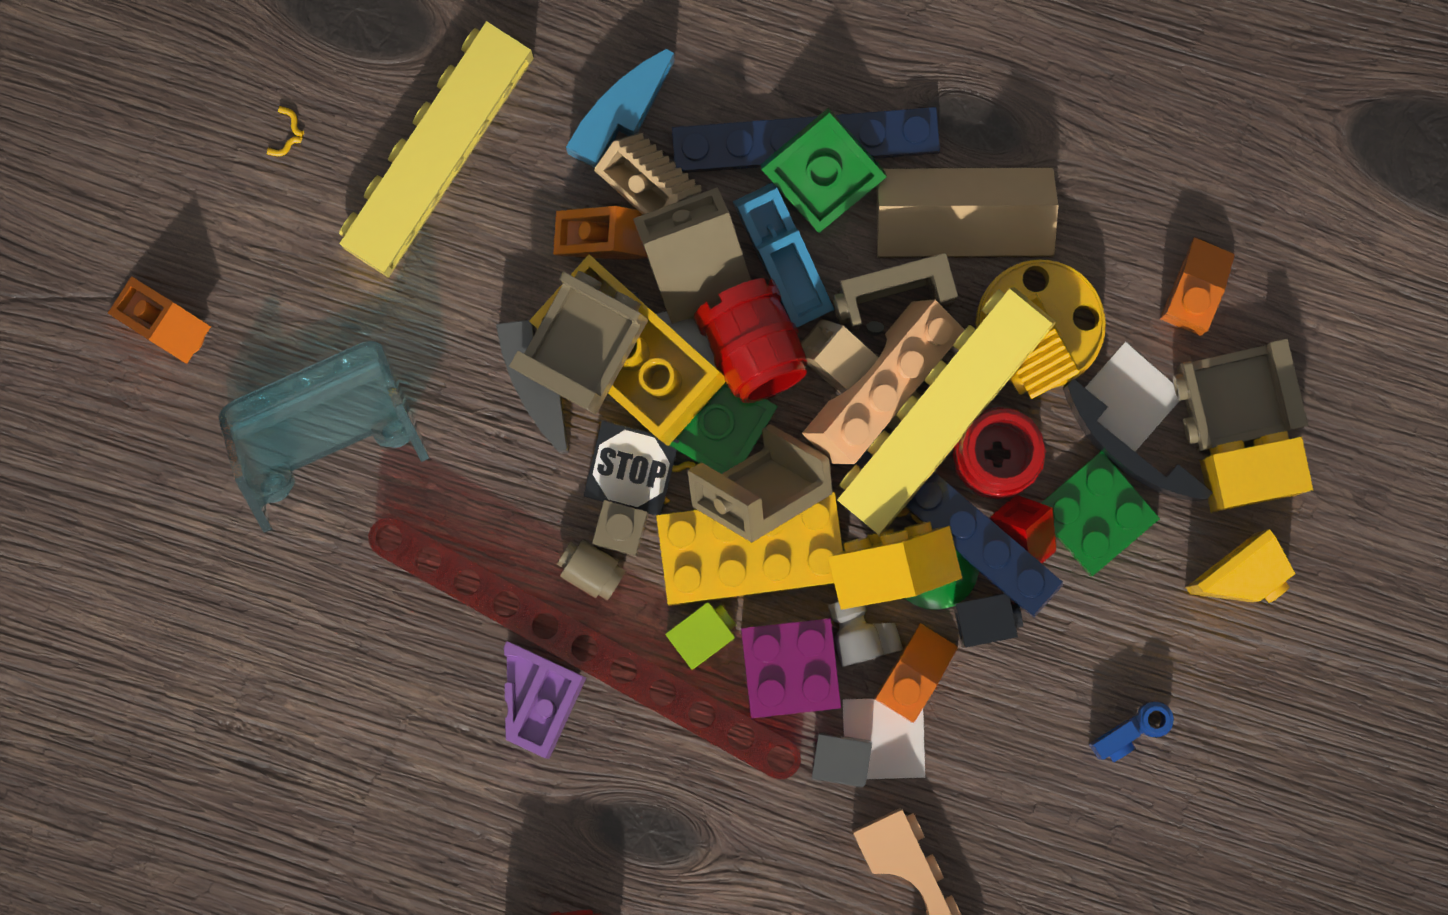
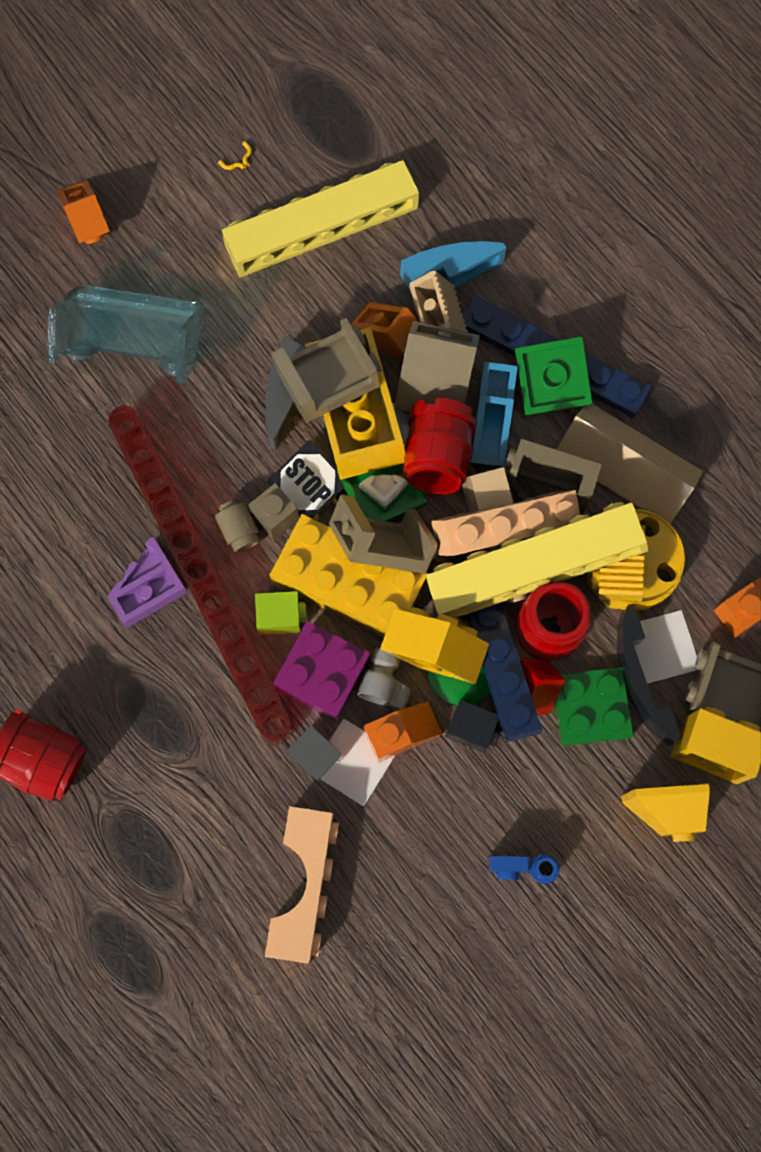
camera: 30 degrees right, 10 degrees down
(722, 424) = (383, 488): none -> white tile

